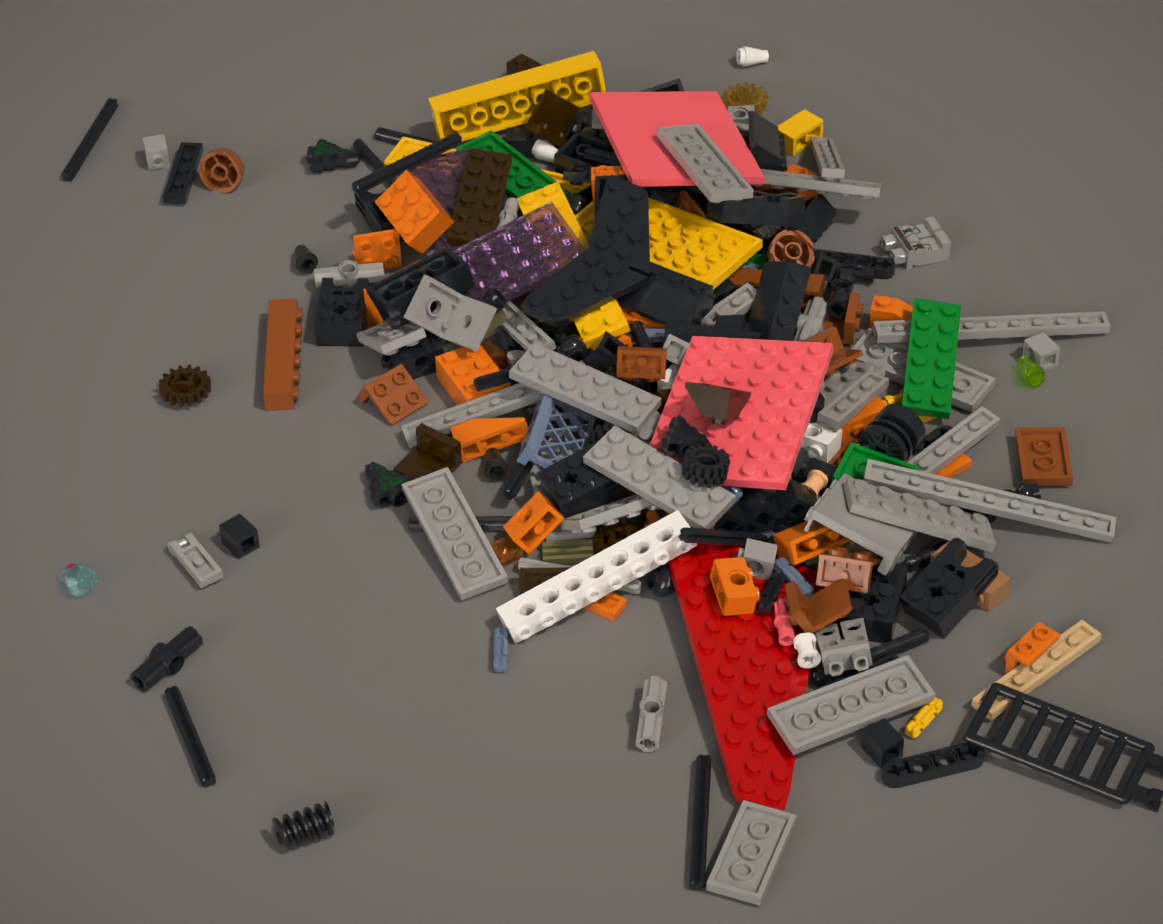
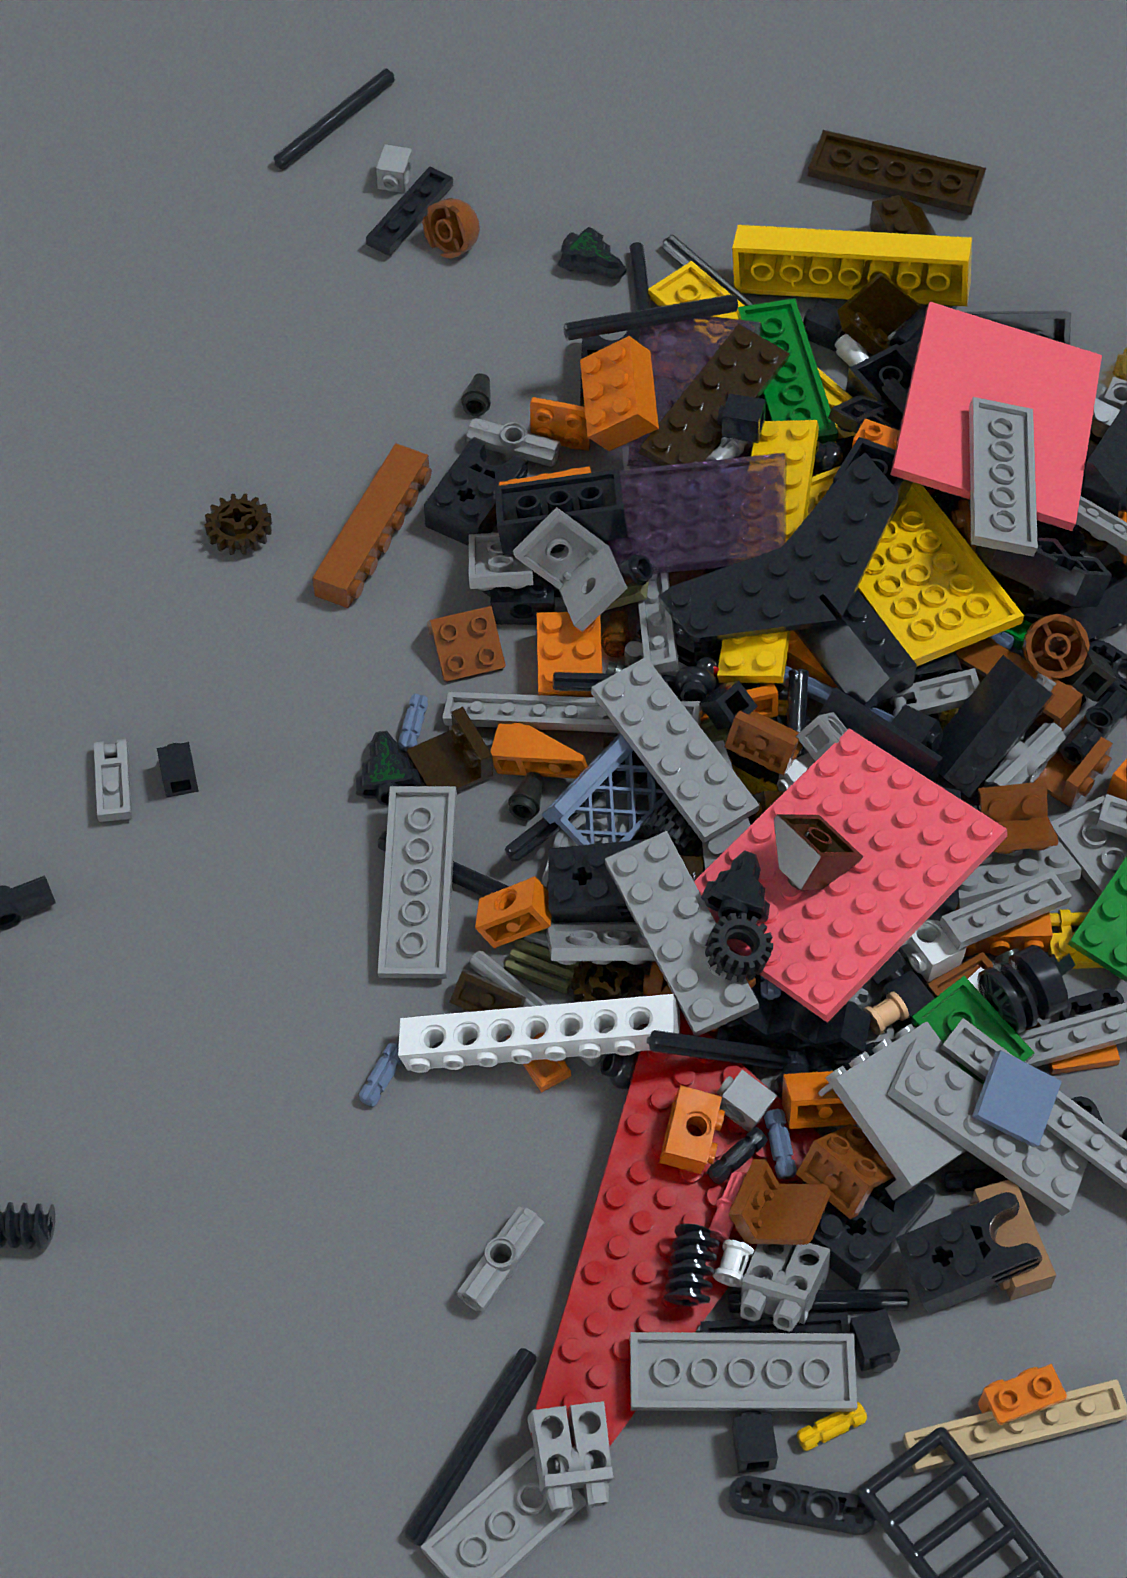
camera: 25 degrees right, 15 degrees up
(386, 452) = (413, 722): none -> sand blue axle
(506, 45) = (896, 172): none -> dark brown plate
(507, 550) = (464, 932): clear orange plate -> none
(509, 194) = (742, 418): none -> black brick
(773, 786) = (572, 1453): none -> light grey hips
(782, 658) = (689, 1265): none -> black piece
(924, 657) = (874, 1341): none -> black brick
(929, 487) = (1017, 1098): none -> sand blue tile

